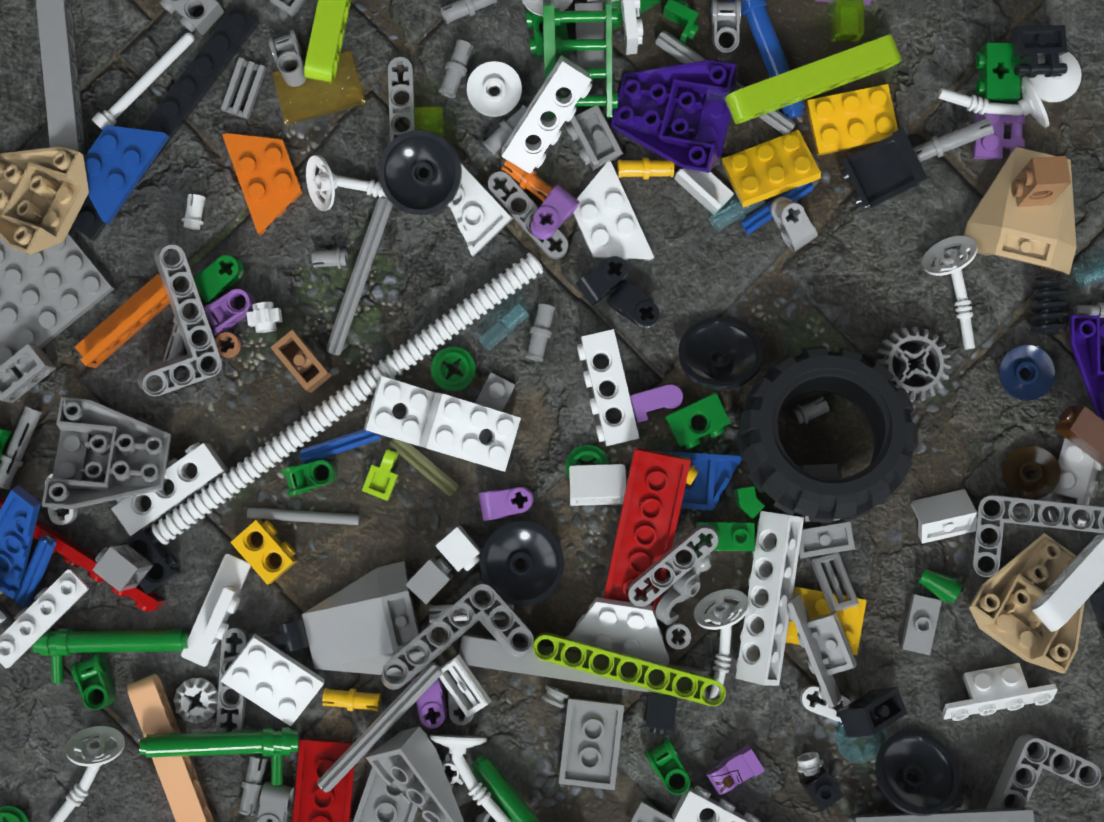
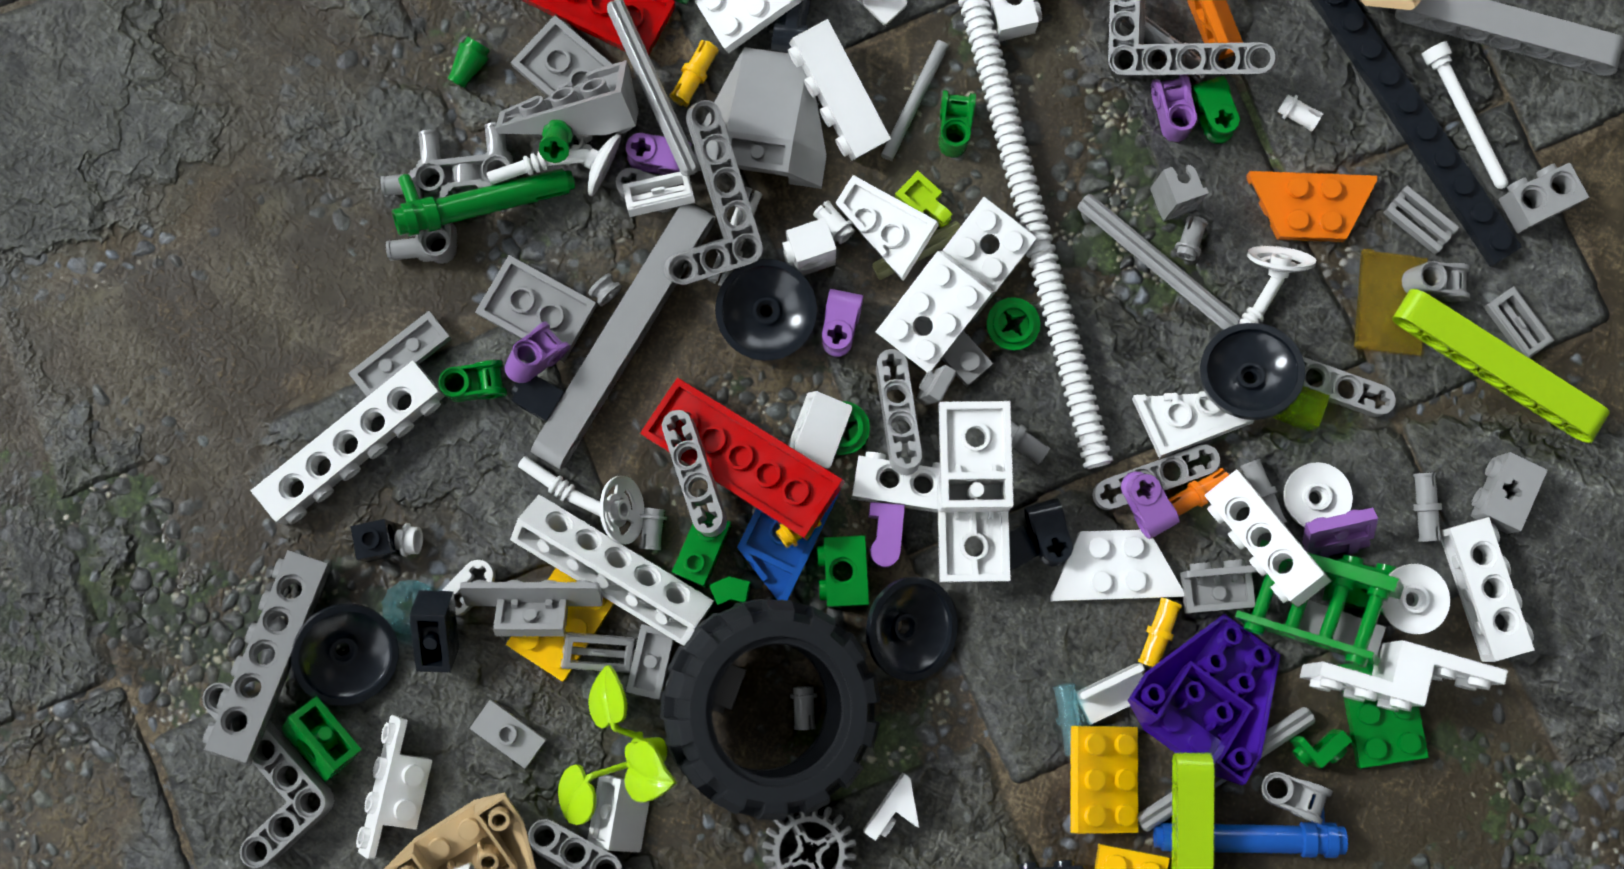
camera: 110 degrees right, 5 degrees down
(117, 165) = (1383, 47): blue wing -> none
(230, 352) = (1126, 91): nougat bush -> none
(259, 556) = (889, 35): yellow brick -> none
(264, 317) = (1152, 141): white gear -> none
(301, 361) = (1087, 160): medium nougat brick -> none
(303, 284) = (1176, 197): none -> light grey hinge
(322, 577) = (838, 89): none -> white brick
(337, 445) = (977, 164): blue axle -> none
(414, 496) = (887, 224): none -> white wing
(428, 539) = (840, 228): none -> white pin
(430, 579) = (789, 201): light grey brick -> none
(456, 68) = (1357, 463): light grey pin -> none
(461, 783) = (555, 141): none -> green bush
(503, 327) = (1038, 398): clear light blue axle -> none
(516, 59) = (1340, 533): none -> medium lavender plate
(528, 408) = (935, 385): none -> light grey plate
(557, 425) = (898, 411): none -> light grey beam
(602, 345) = (974, 491): none -> white bracket
(622, 629) = (645, 388): white wing -> none
(626, 726) = (539, 349): none -> medium lavender piece
(639, 678) = (598, 393): lime beam -> none
(683, 588) = (663, 479): light grey piece -> none
(686, 636) = (618, 443): white bush -> none
(724, 581) = (652, 528): none -> light grey pin
(734, 770) = (438, 454): medium lavender leg -> none
(763, 214) = (1056, 767): blue axle -> none
(793, 223) = (1026, 778): light grey piece -> none
(850, 314) = (899, 800): none -> white slope
(915, 506) = (645, 757): none -> lime plant
(943, 586) = (542, 775): green cone -> none
(986, 763) = (320, 739): none -> green brick

